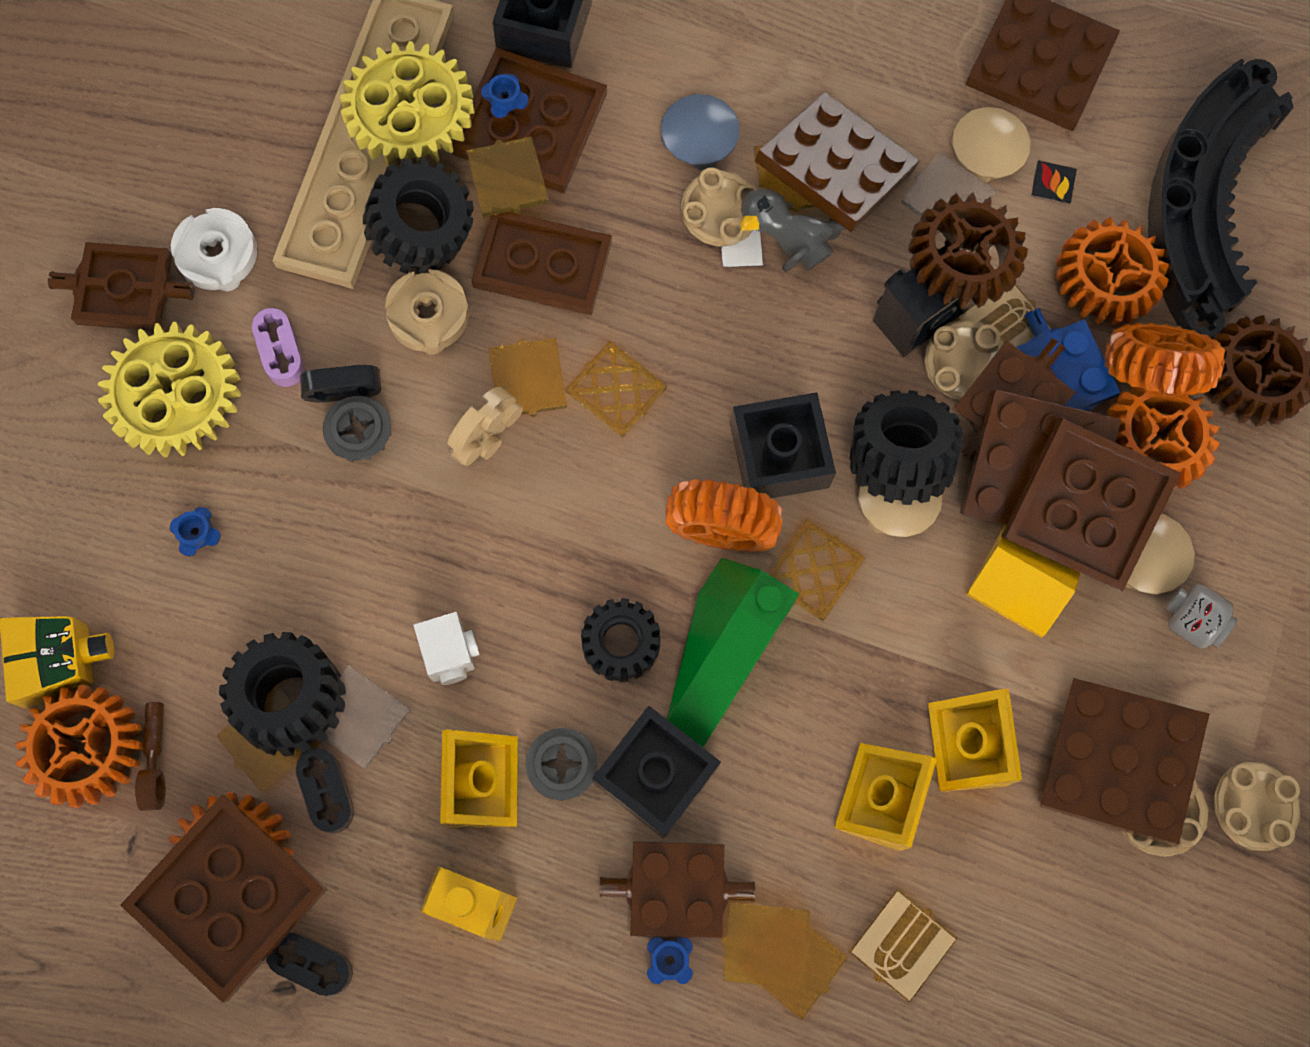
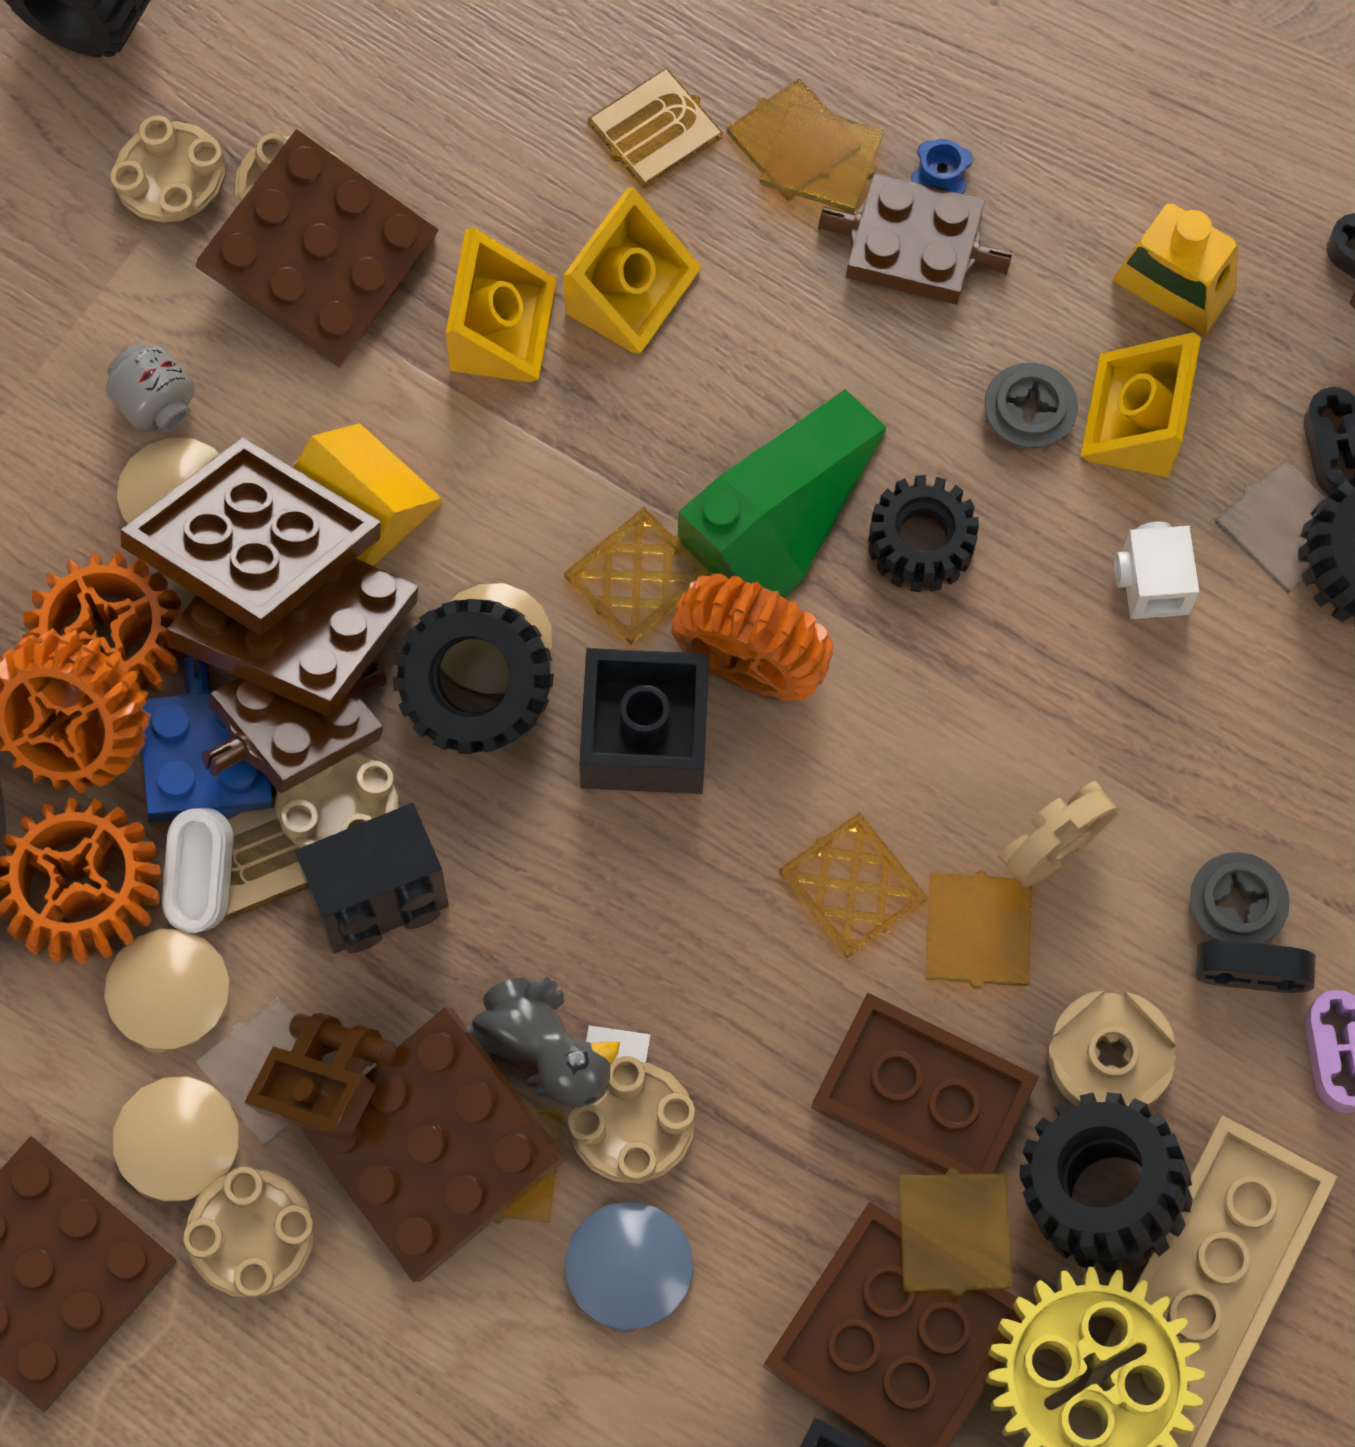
camera: 165 degrees left, 5 degrees down
(502, 85) = (946, 1352): blue plate -> none
(656, 772) = (915, 354): black brick -> none
(920, 166) = (315, 1093): none -> reddish brown plate
(929, 99) = (249, 1233): none -> tan dish
(972, 228) = (290, 882): reddish brown gear -> none
(1040, 295) = (197, 870): none -> white tile
(1041, 219) = (167, 990): none -> tan dish
(1054, 182) = (98, 1061): black sticker -> none

